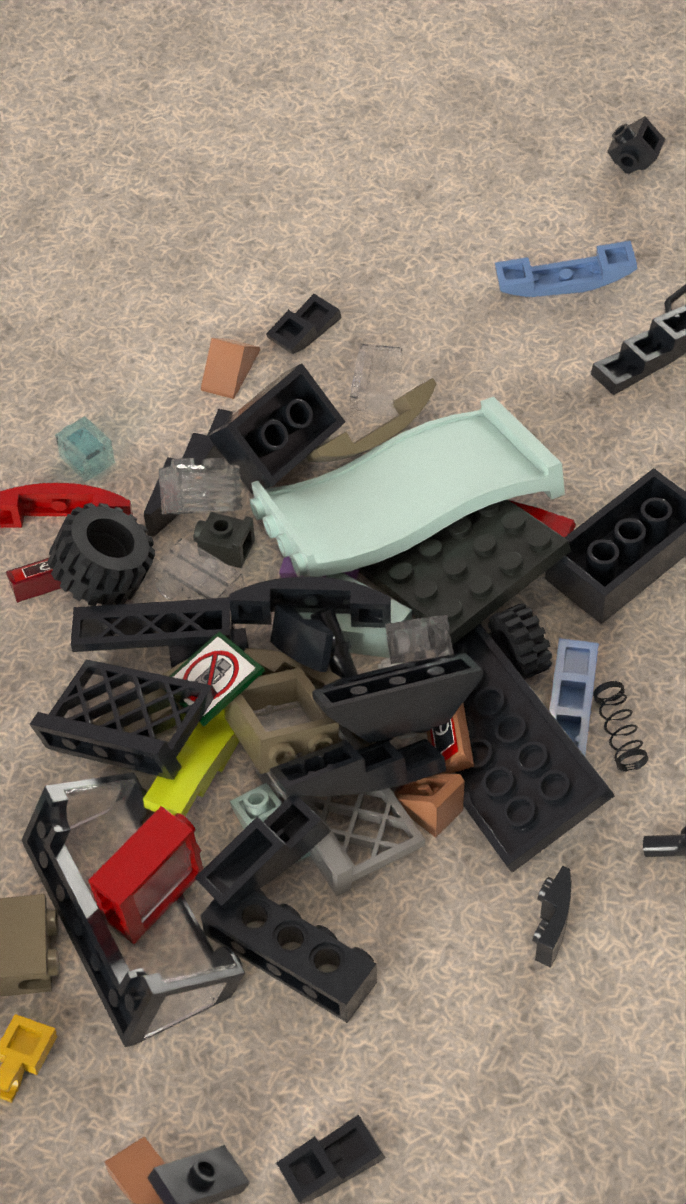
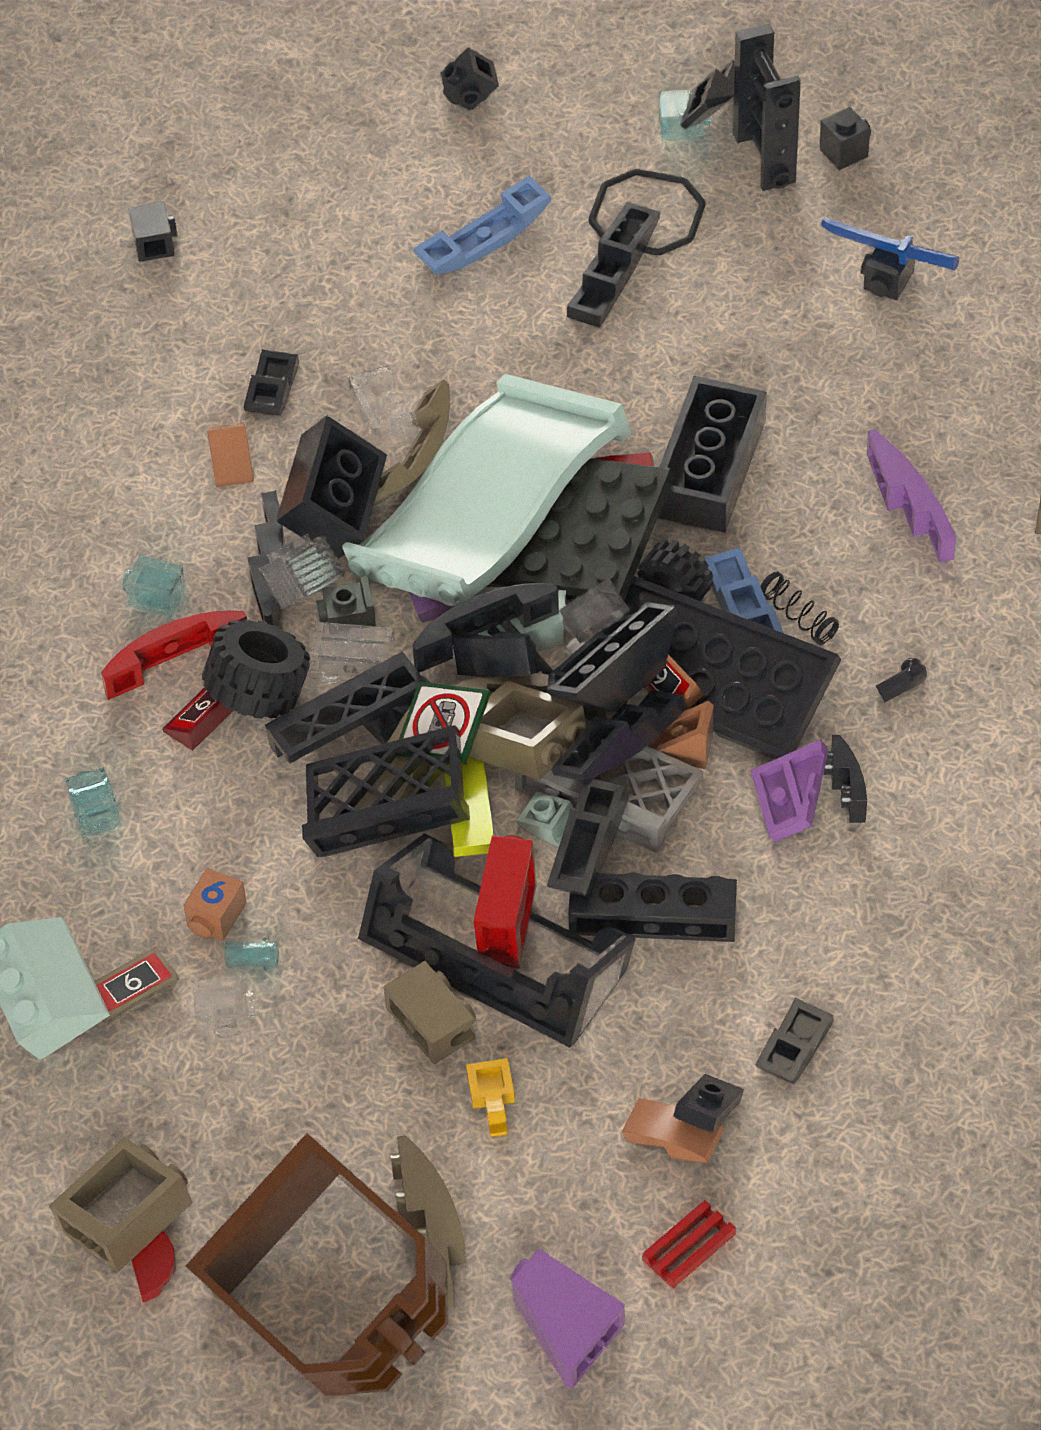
camera: 30 degrees left, 0 degrees up
(296, 166) = (152, 231): none -> brick
(492, 899) = (790, 789): none -> medium lavender wing

